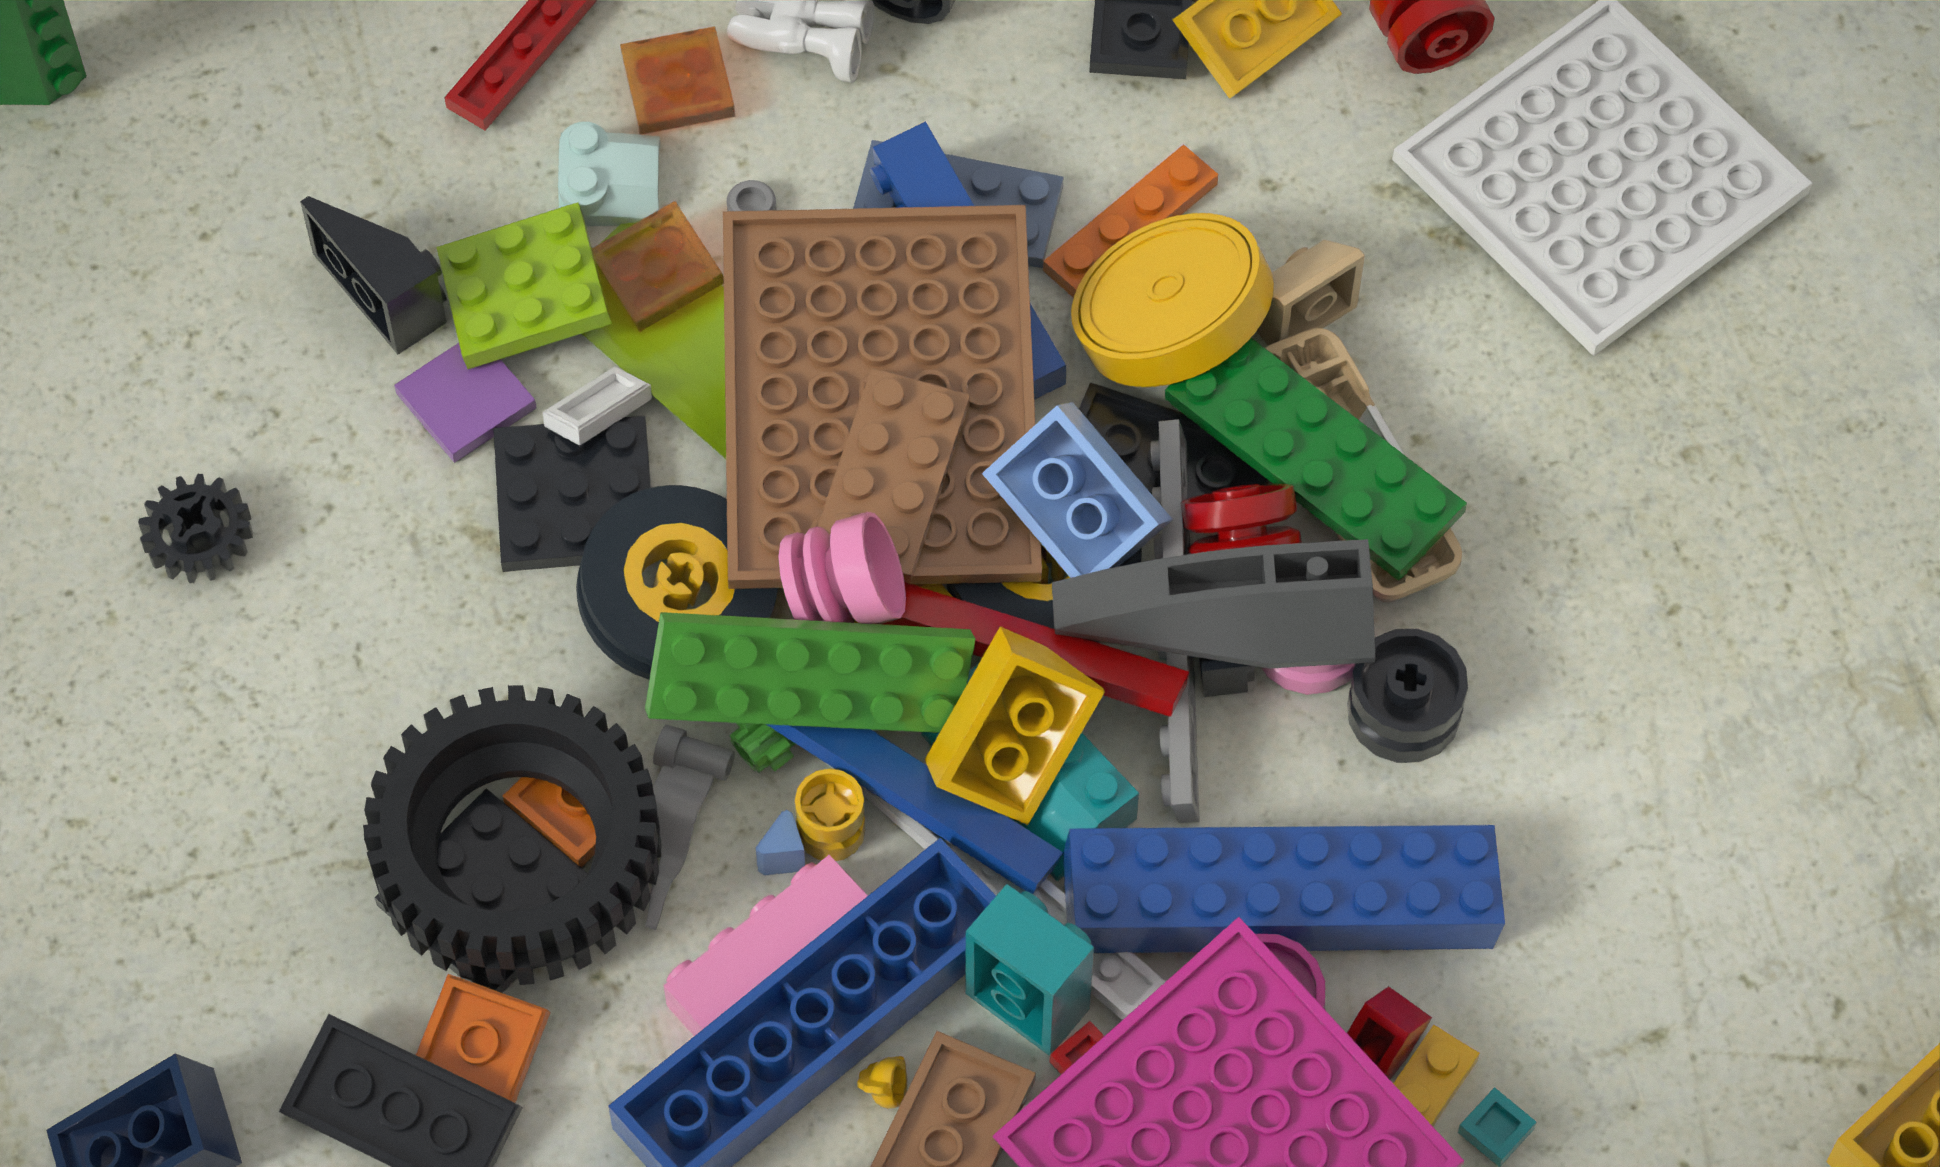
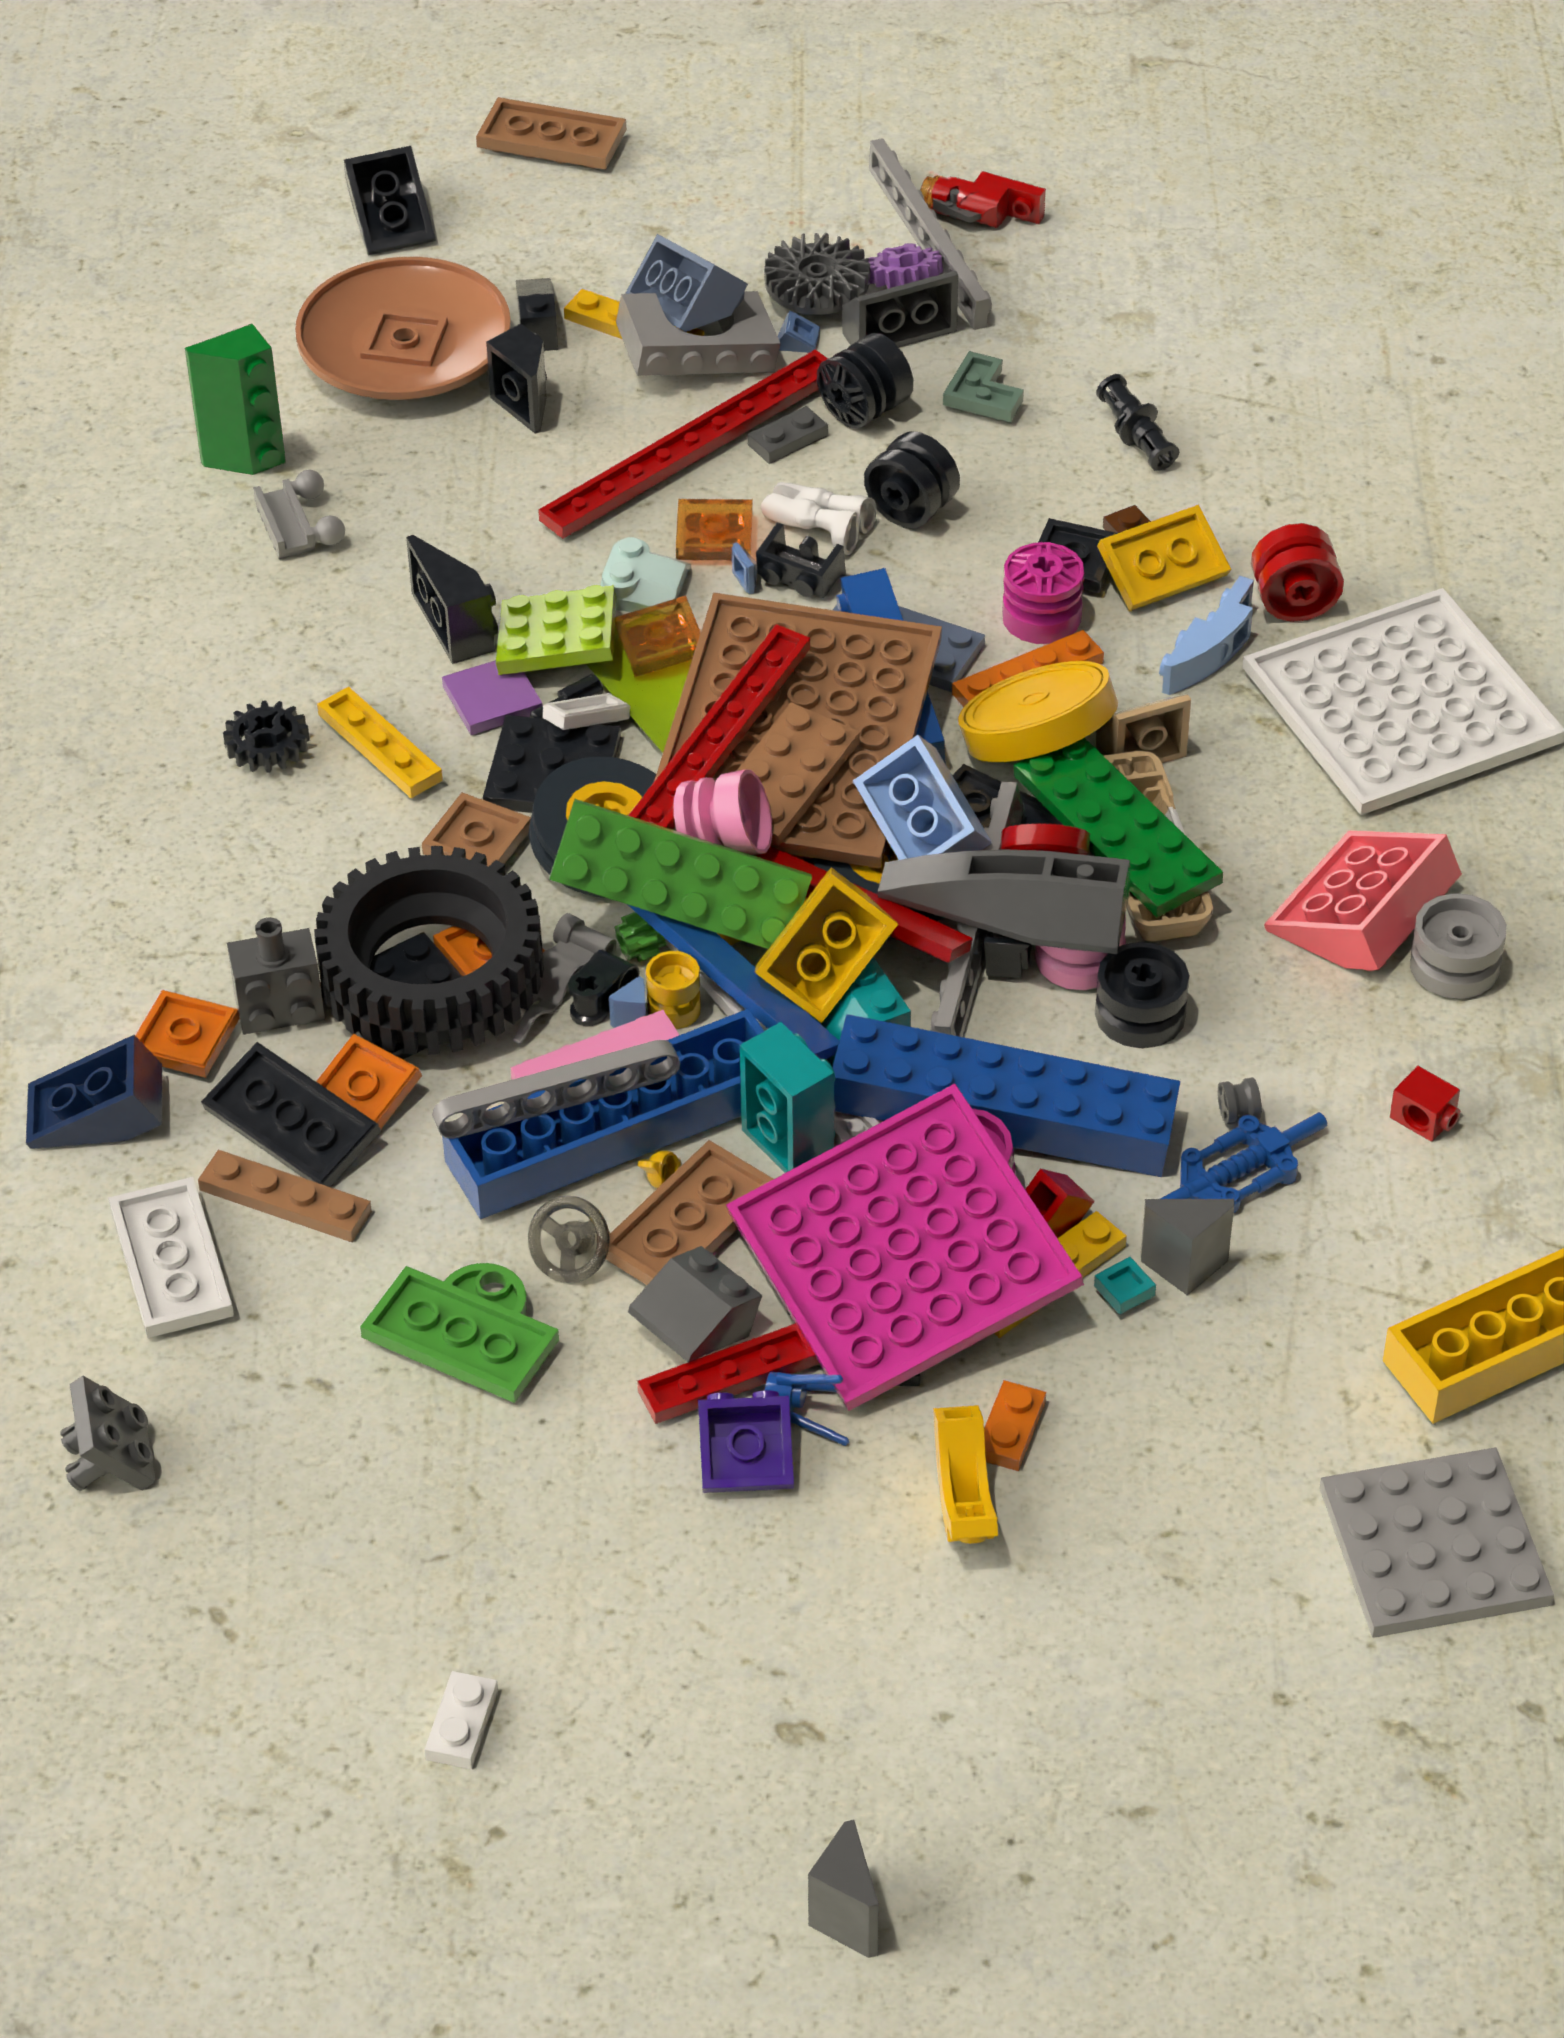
camera: 15 degrees right, 15 degrees down
(118, 174) = (287, 521): none -> light grey gear
(226, 1011) = (187, 1032): none -> orange plate
(327, 919) = (275, 978): none -> dark grey brick
(344, 504) = (380, 742): none -> yellow plate
(511, 625) = (478, 828): none -> medium nougat plate
(568, 379) = (584, 687): none -> black axle
(732, 134) = (744, 568): none -> medium blue slope
(734, 825) = (595, 983): none -> black piece
(740, 1024) = (556, 1087): none -> light grey beam
(791, 438) = (725, 722): none -> red plate
(801, 116) = (799, 567): none -> black window
(1123, 105) = (1042, 592): none -> dark pink wheel
(1347, 130) = (1210, 642): none -> light blue slope
(1557, 1055) = (1186, 1239): none -> dark grey slope
(1563, 823) = (1239, 1100): none -> dark grey wheel
(1614, 883) = (1265, 1147): none -> blue bar
(1634, 483) = (1366, 896): none -> coral slope
(1768, 540) = (1458, 945): none -> light grey wheel
(1786, 779) = (1425, 1104): none -> red brick

